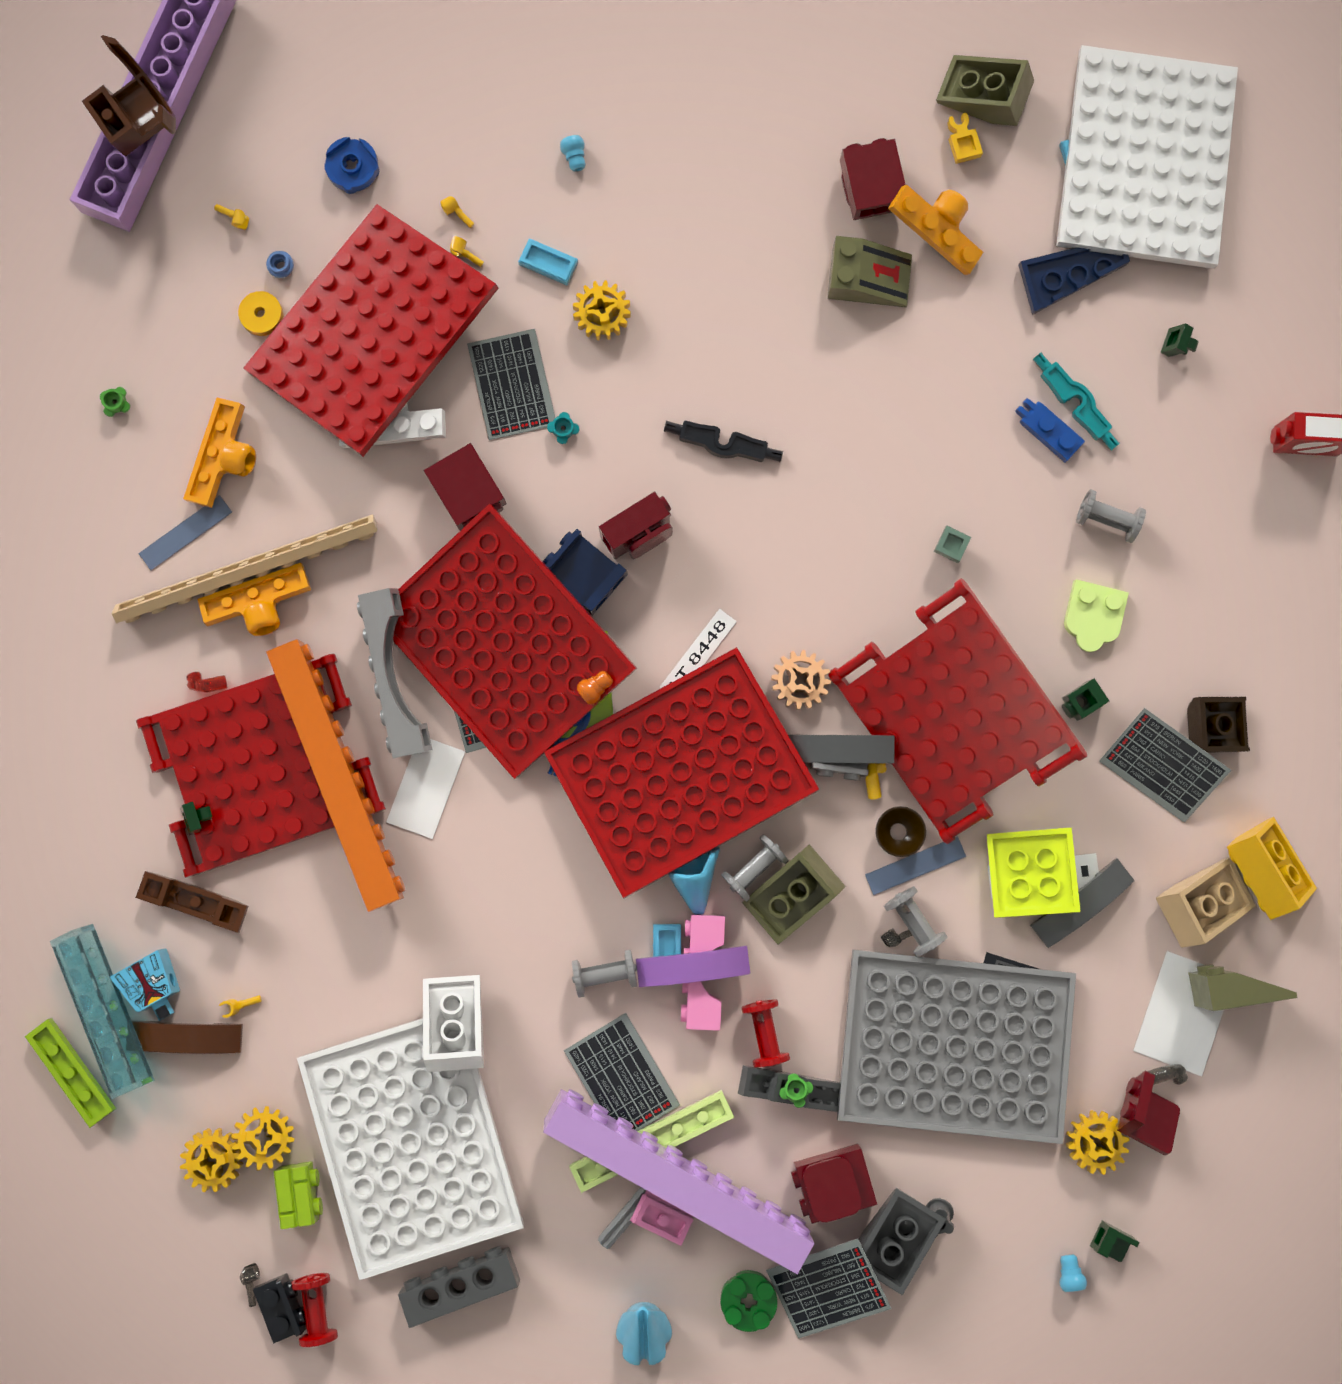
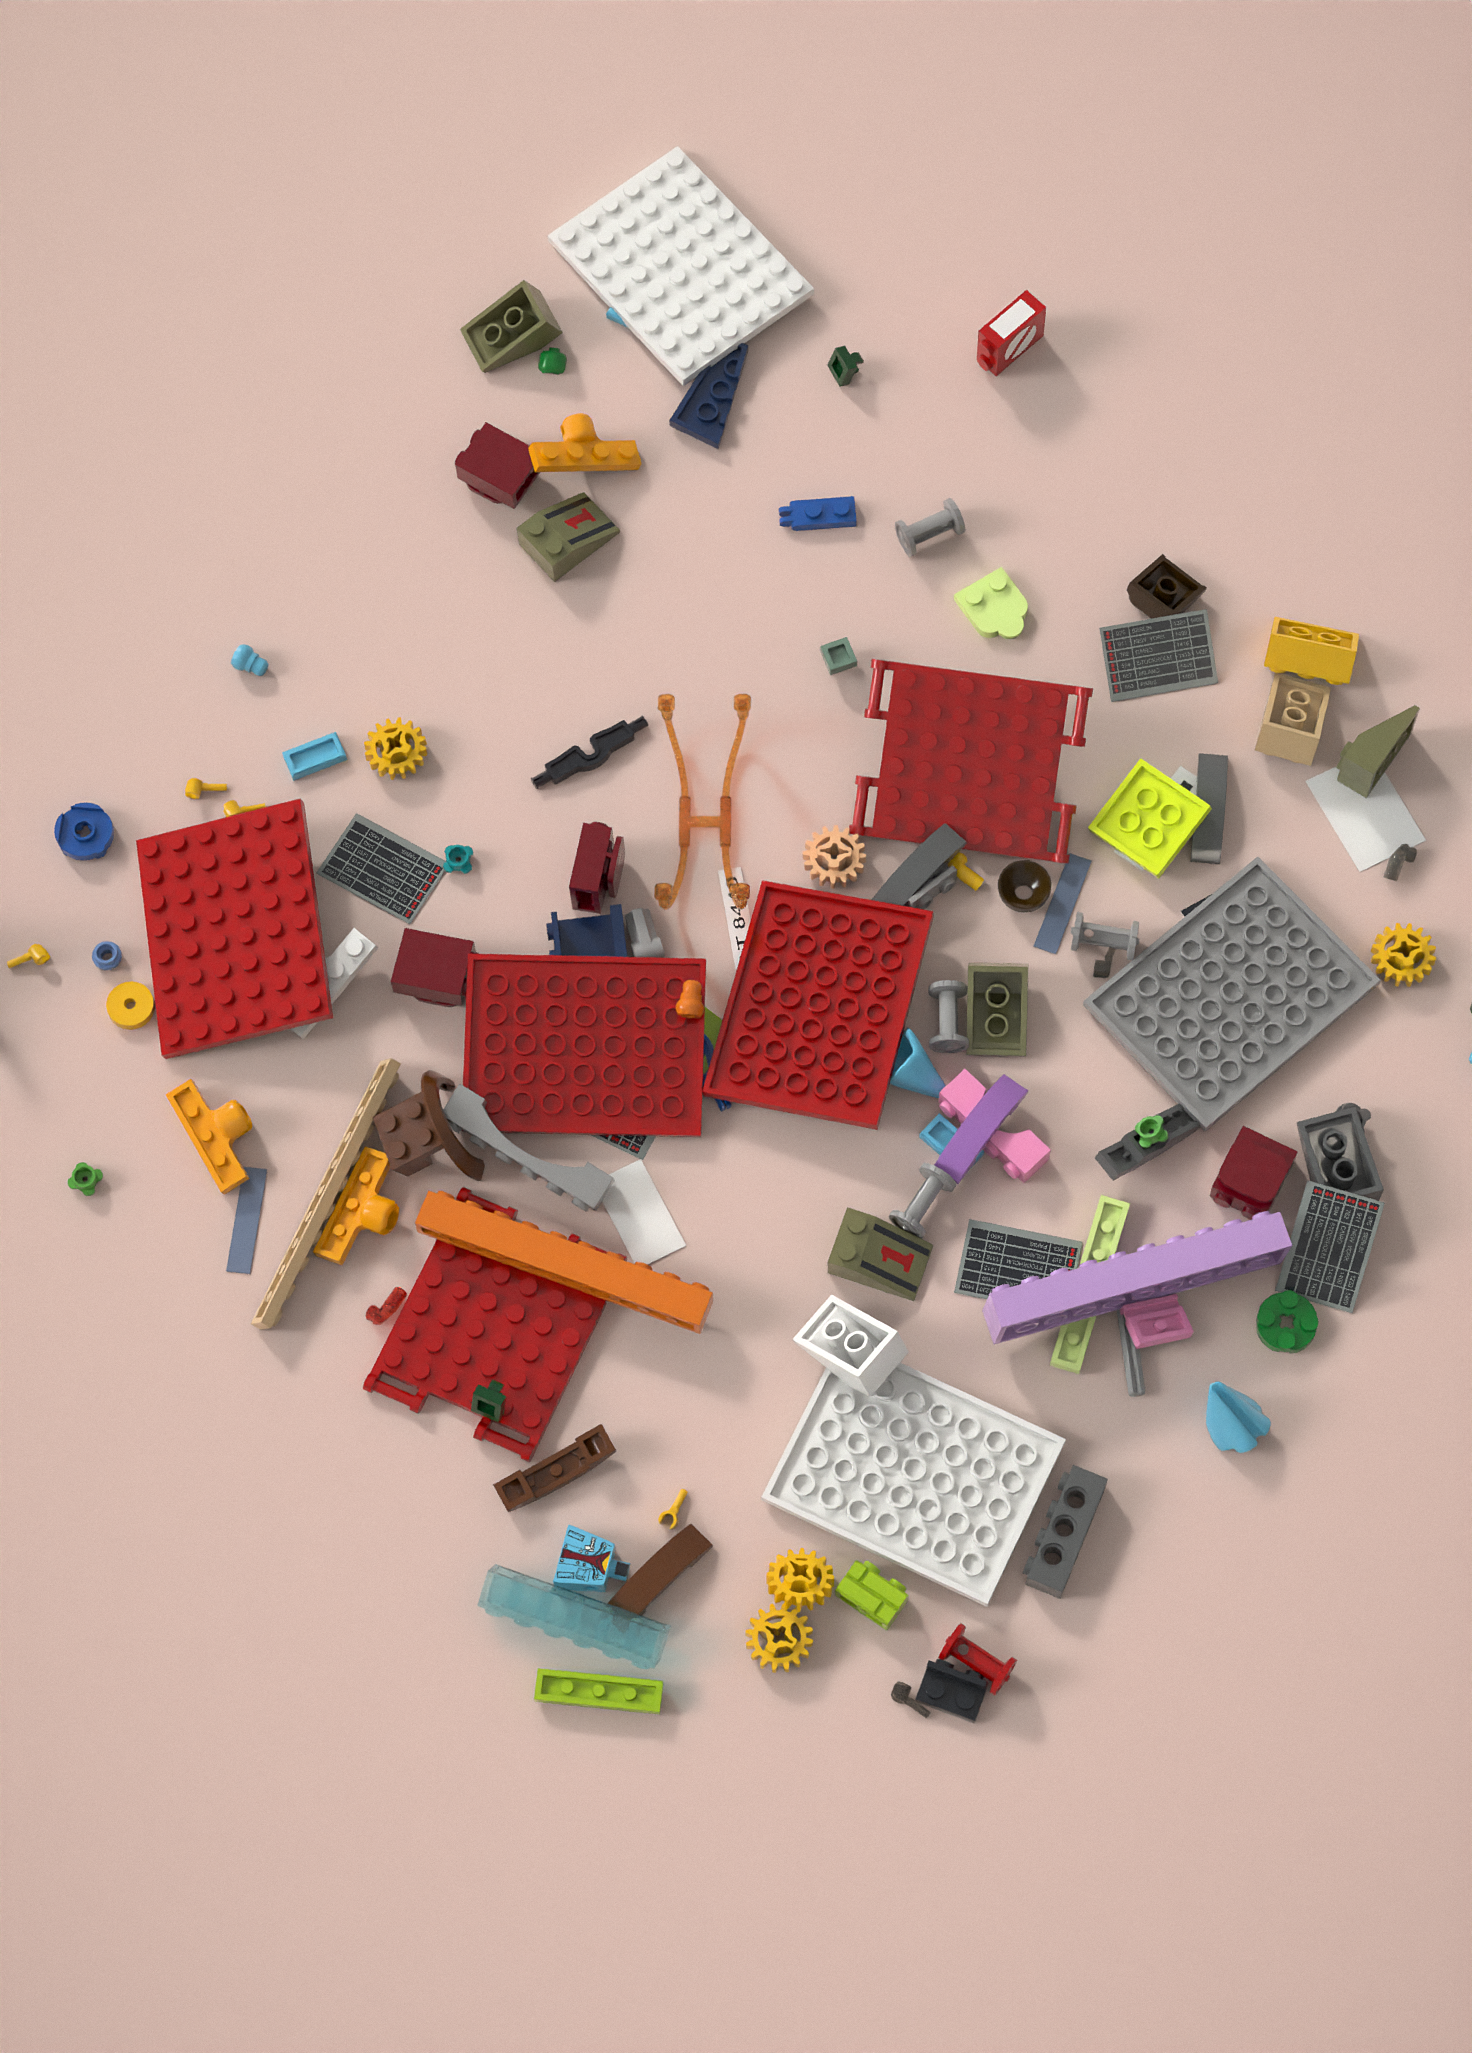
camera: 40 degrees left, 15 degrees down
(334, 589) = (420, 1128): none -> reddish brown piece
(540, 979) = (879, 1255): none -> olive slope
(617, 612) = (643, 934): none -> light grey piece
(702, 648) = (739, 891): none -> clear orange bar
(765, 1033) = (1085, 1121): red hose -> none
(964, 142) = (535, 380): yellow plate -> none
(990, 140) = (552, 361): none -> green piece
(1086, 413) = (801, 475): teal piece -> none
(1092, 696) = (1053, 664): dark green brick -> none
(1148, 1116) = (1416, 899): dark red bracket -> none

